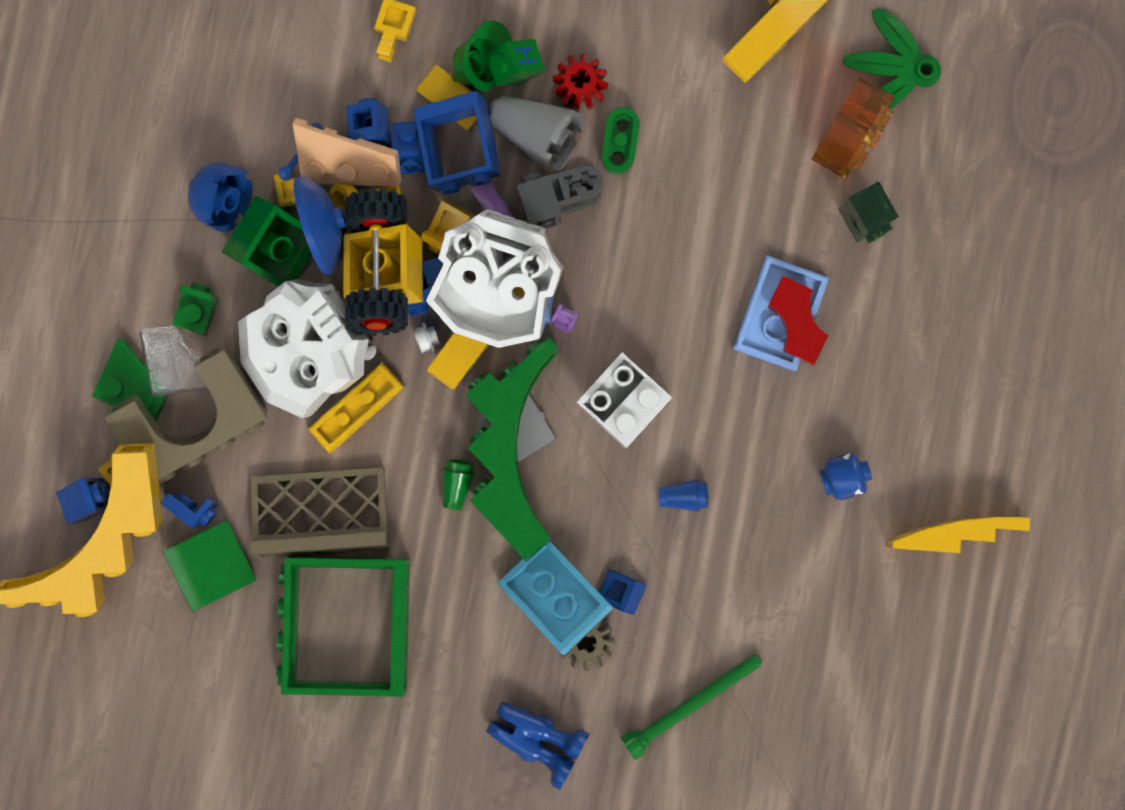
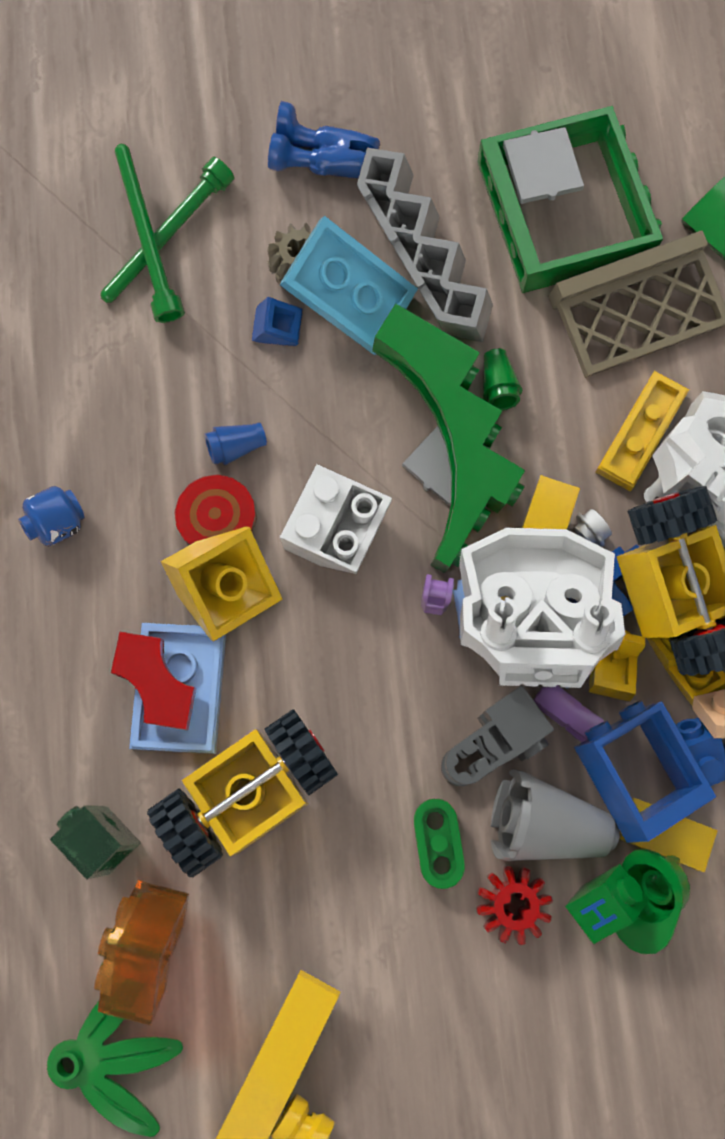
camera: 165 degrees right, 10 degrees down
(359, 655) = (543, 165): none -> light grey piece
(491, 631) = (431, 262): none -> light grey brick
(709, 637) = (165, 304): none -> green piece
(716, 441) = (213, 507): none -> red tile
(725, 382) = (222, 581): none -> yellow slope
(752, 214) = (241, 794): none -> brick

